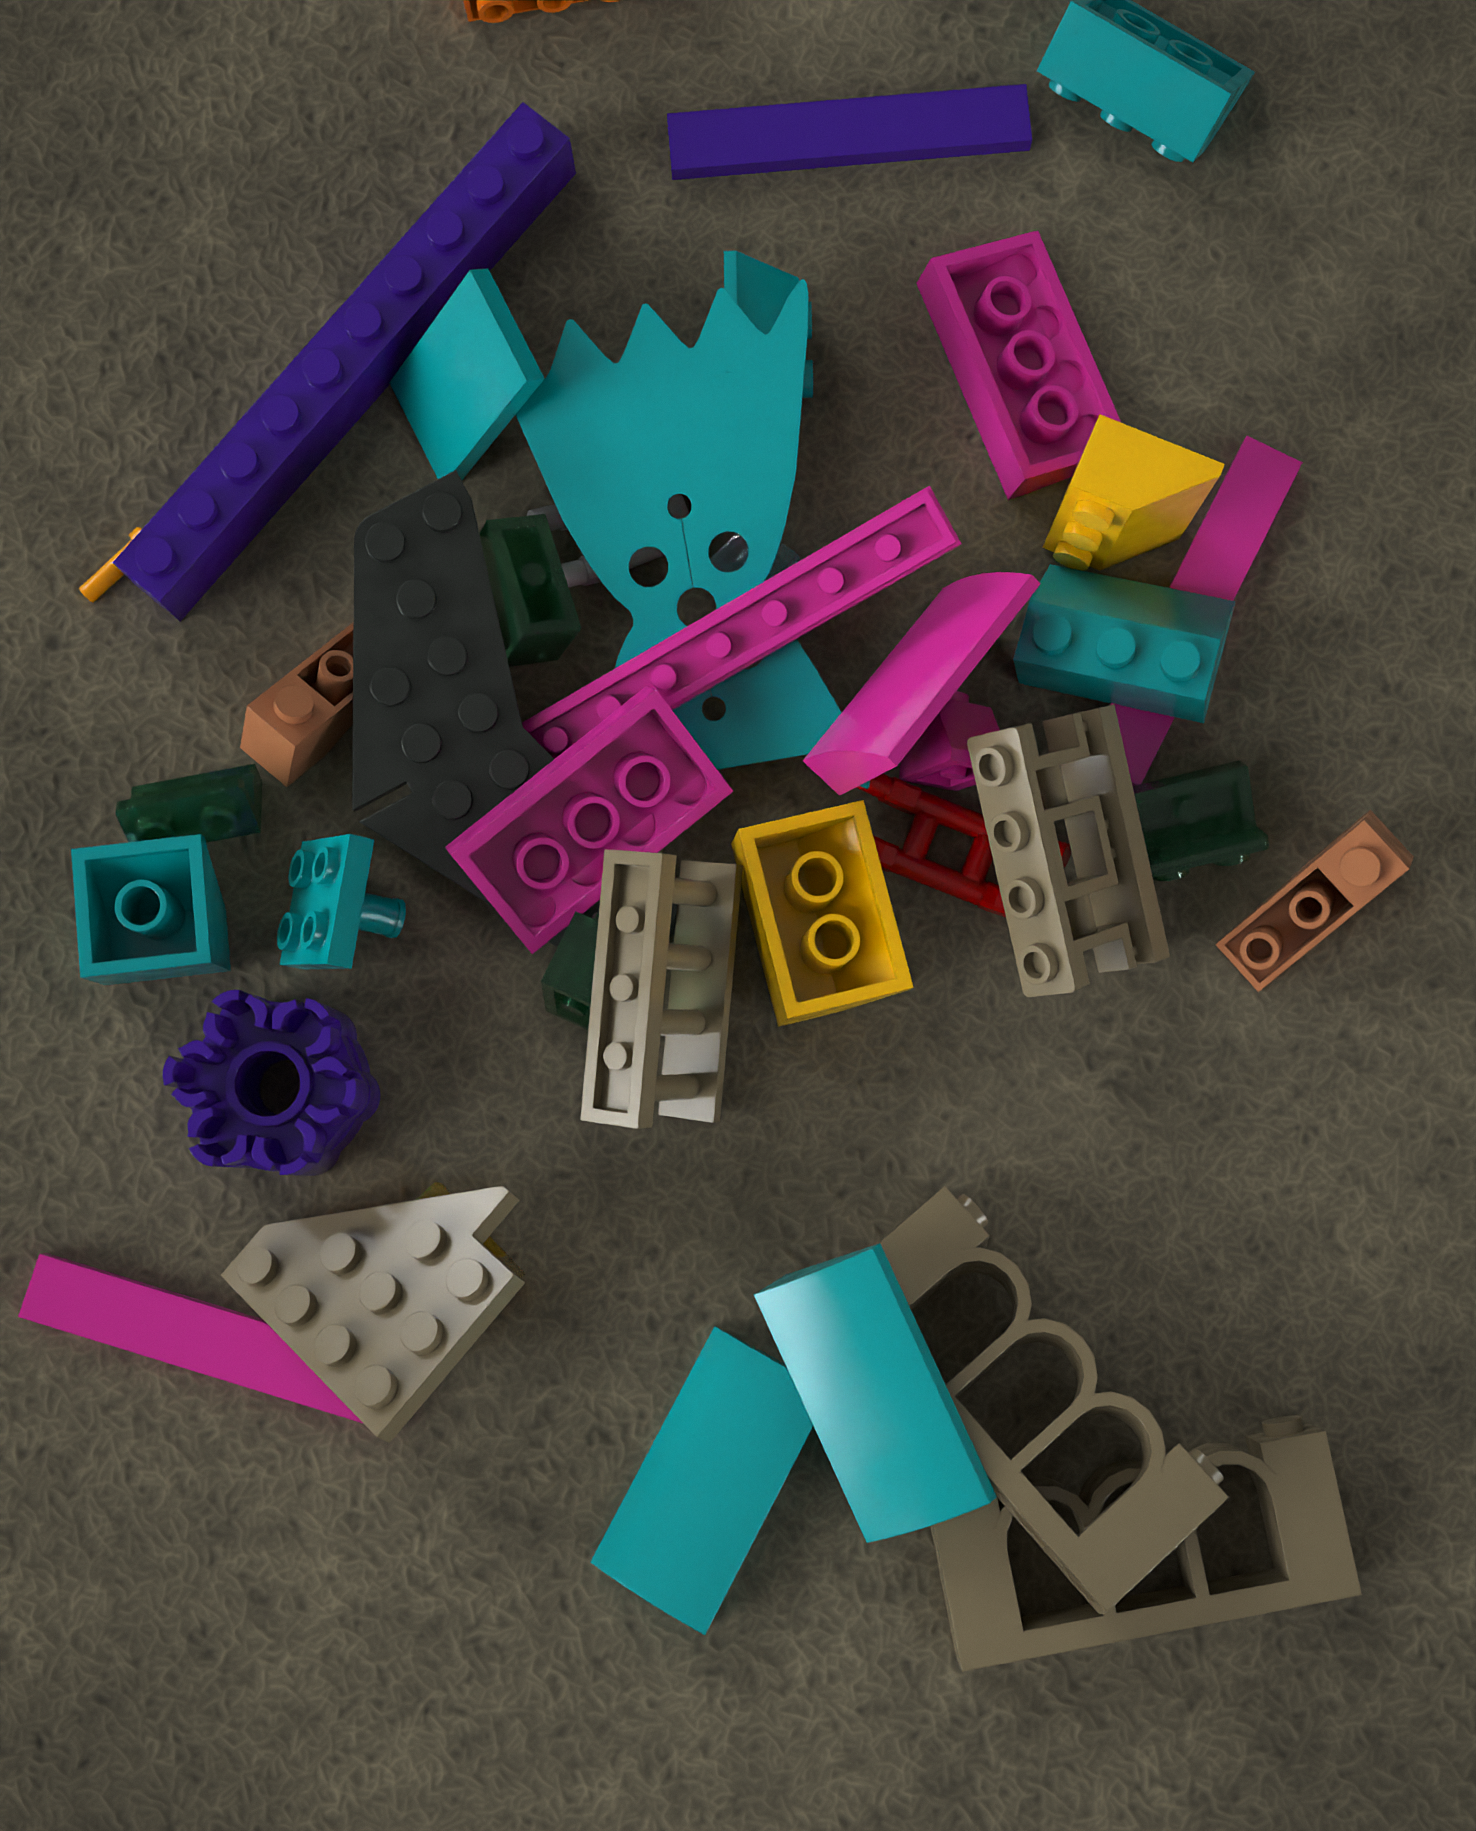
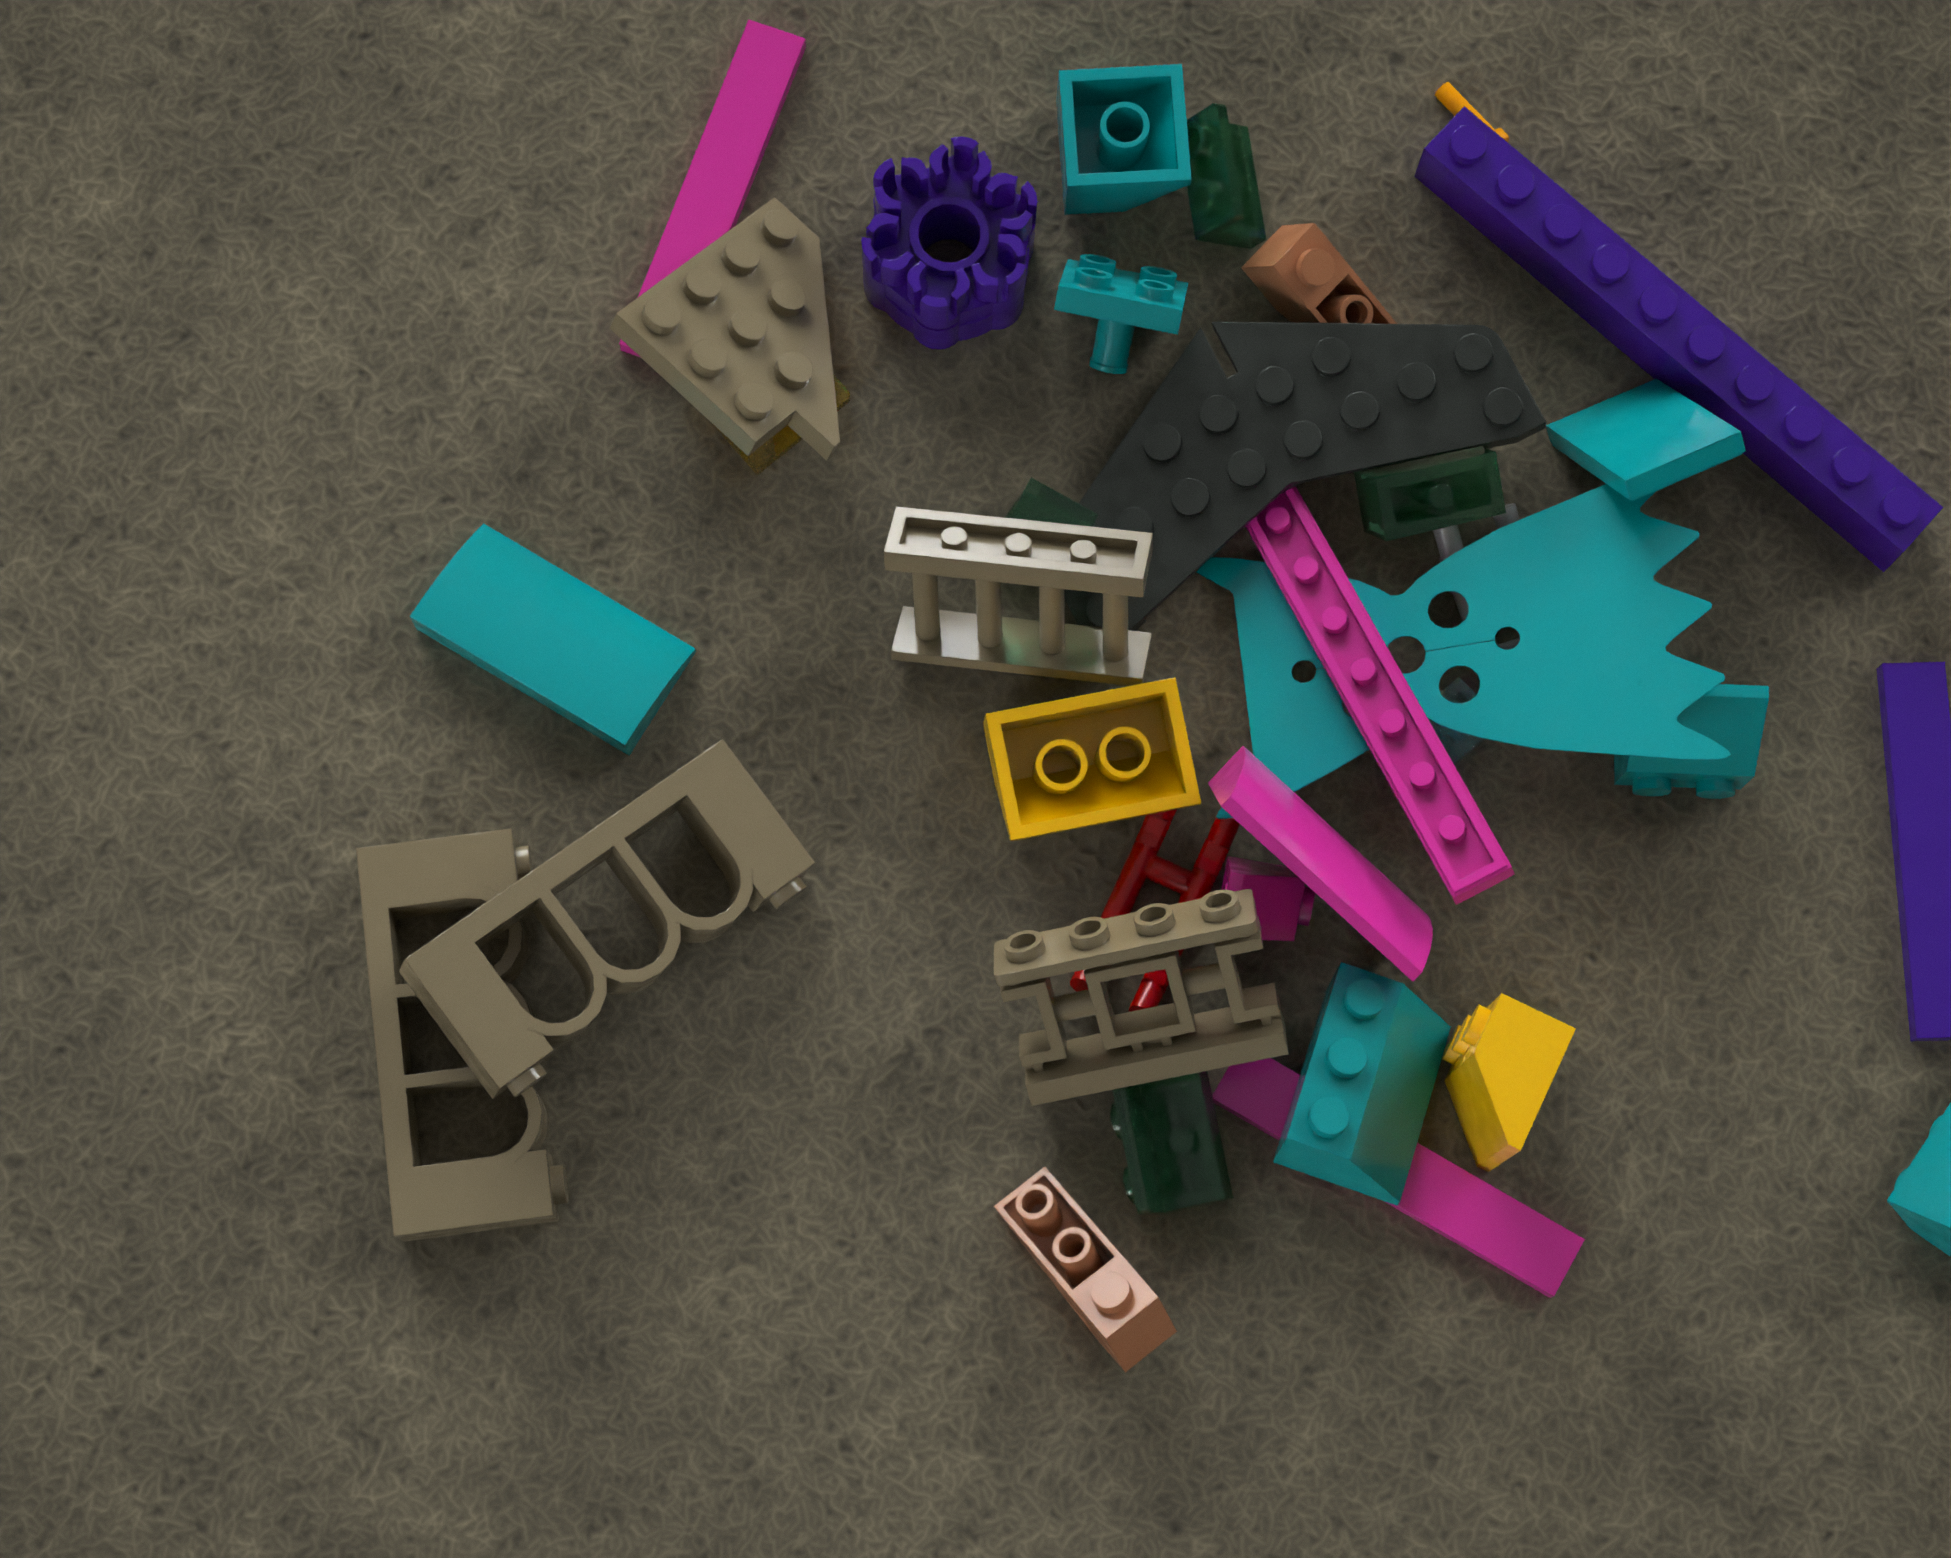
camera: 85 degrees right, 5 degrees down
(617, 788) = (1212, 555): dark pink slope -> none
(874, 1394) = (620, 771): teal slope -> none
(1017, 358) = (1674, 1011): dark pink slope -> none

